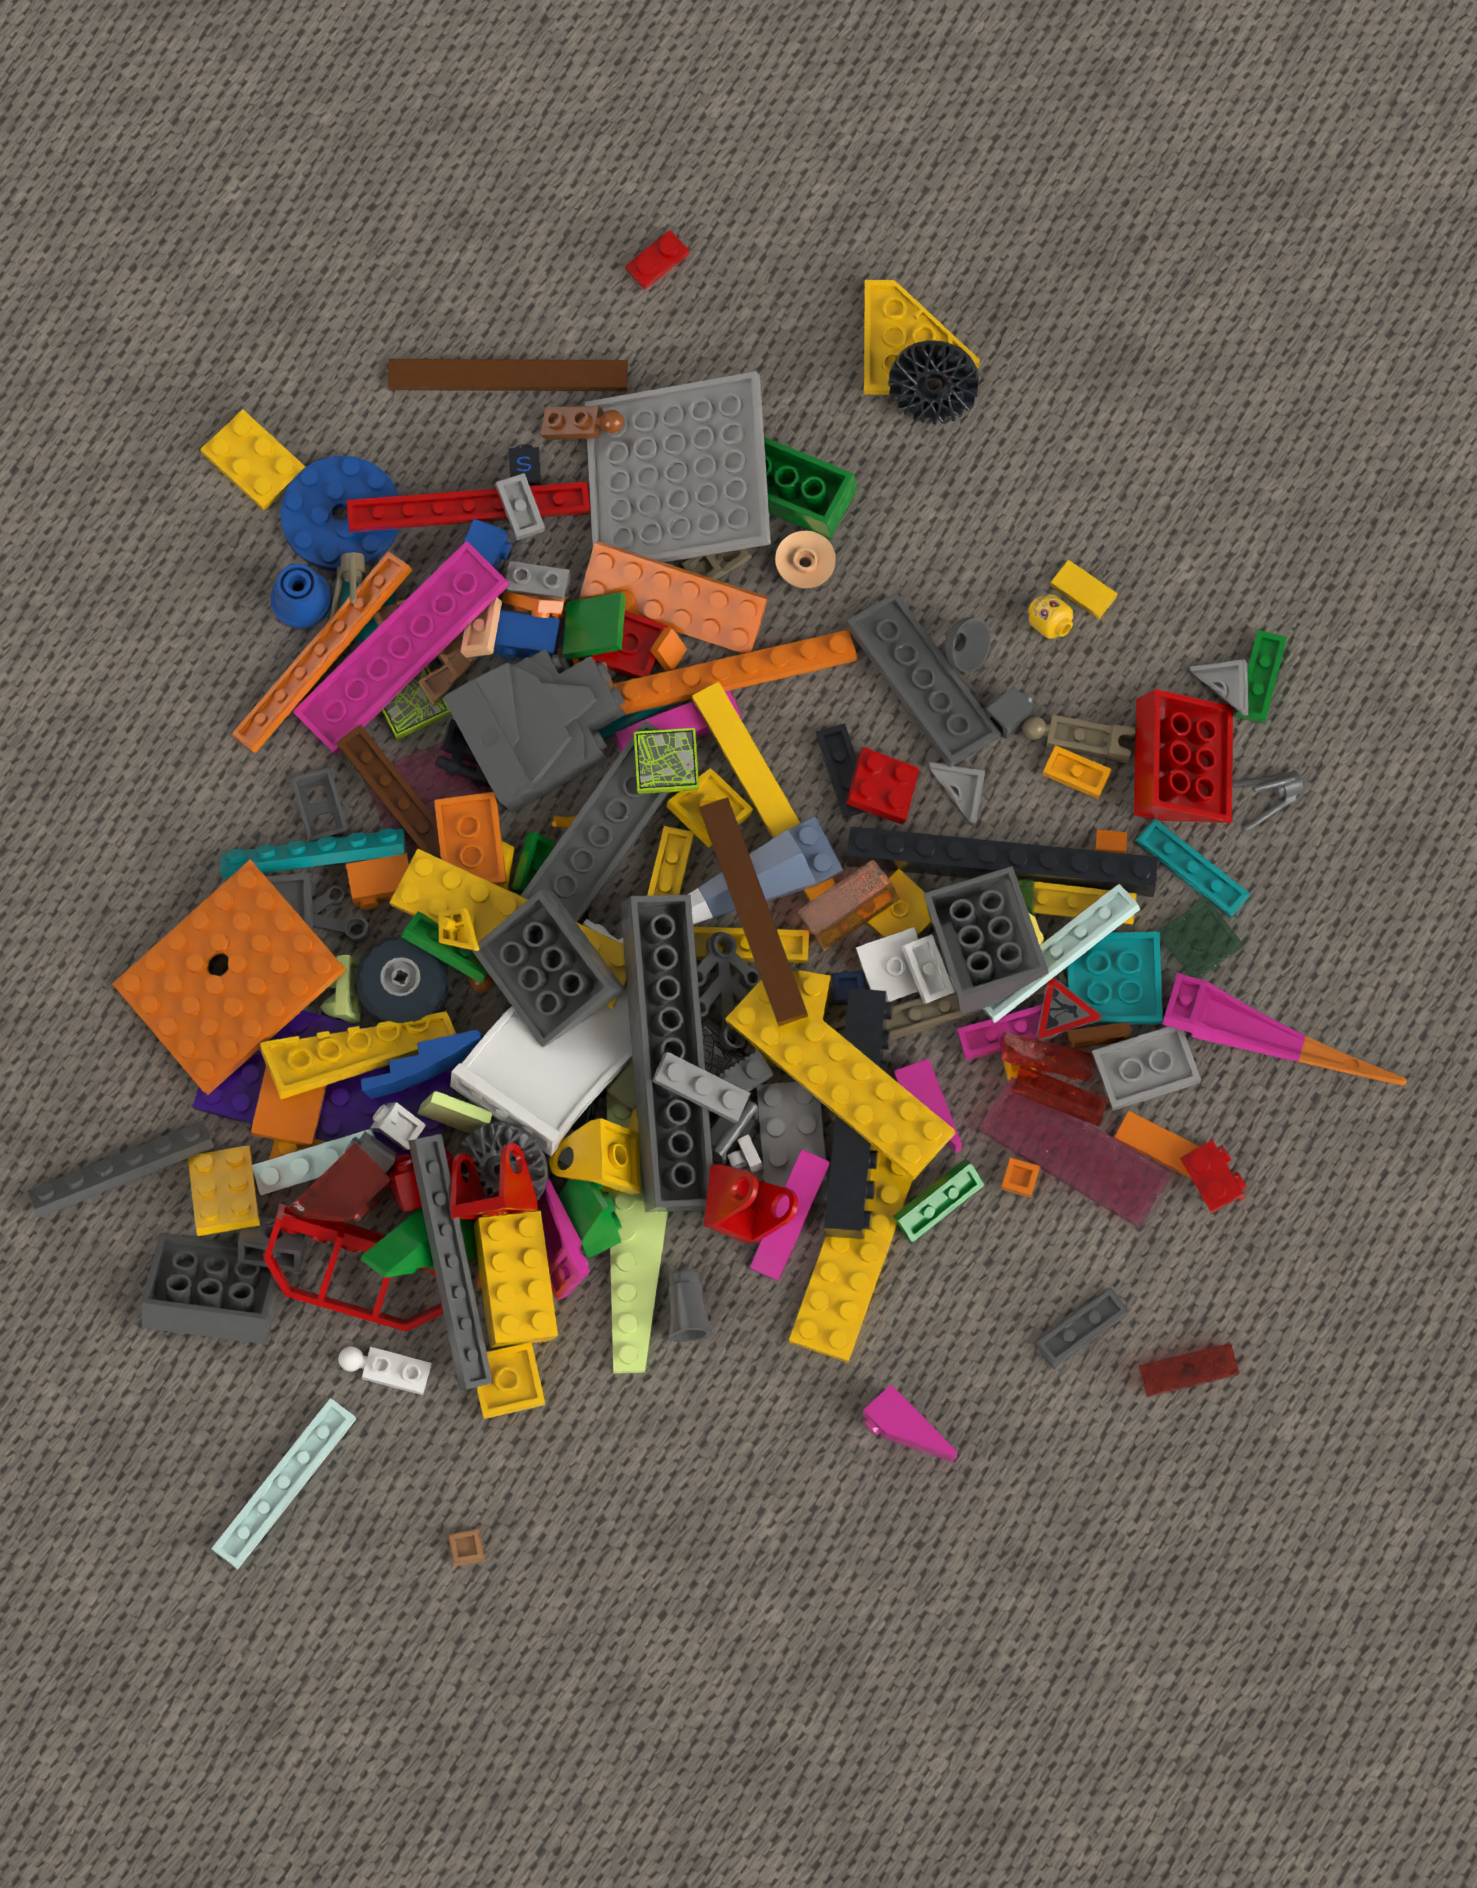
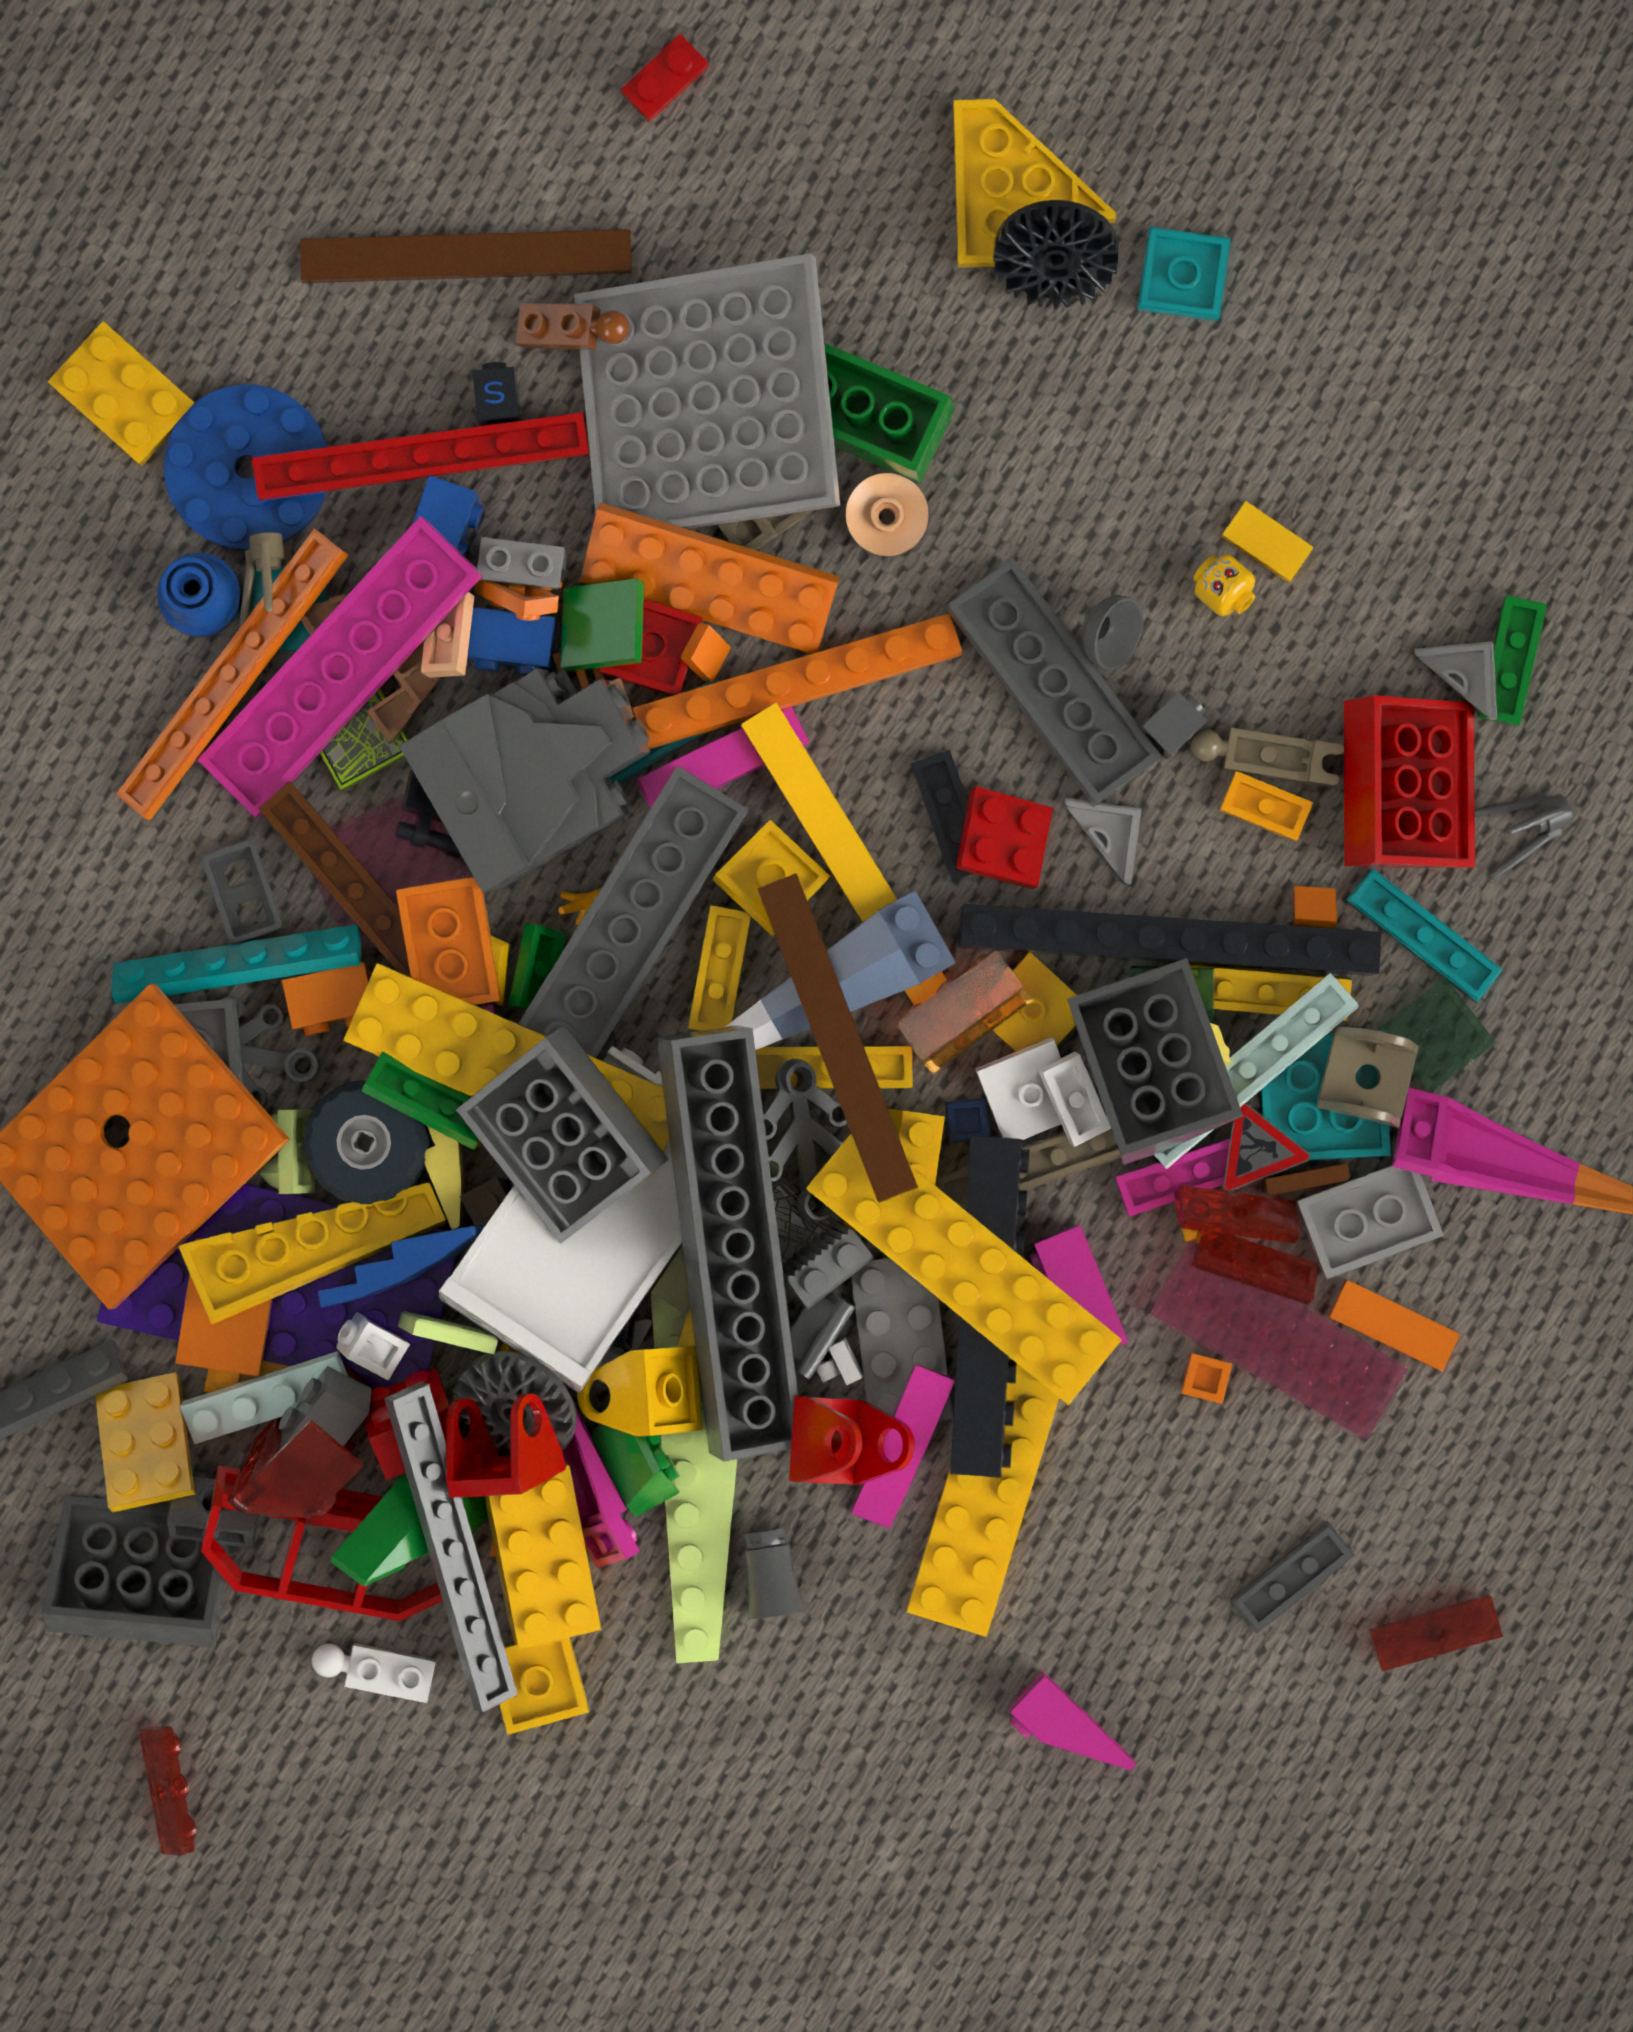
camera: 10 degrees left, 15 degrees up
(223, 1448) = (168, 1790): none -> clear red tile
(283, 1483) = (249, 1833): light aqua plate -> none
(457, 929) = (436, 1085): yellow piece -> none
(458, 999) = (446, 1172): none -> light yellow slope
(466, 1547) = (495, 1905): medium nougat tile -> none
(520, 506) = (492, 457): light grey plate -> none
(666, 760) = (710, 824): tile -> none
(701, 1087) = (777, 1293): light grey plate -> none
(938, 1200) = (1098, 1414): plate -> none
(1028, 404) = (1183, 274): none -> teal tile
(1159, 943) = (1391, 1058): none -> dark tan hose
(1212, 1175) = (1463, 1369): red bracket -> none

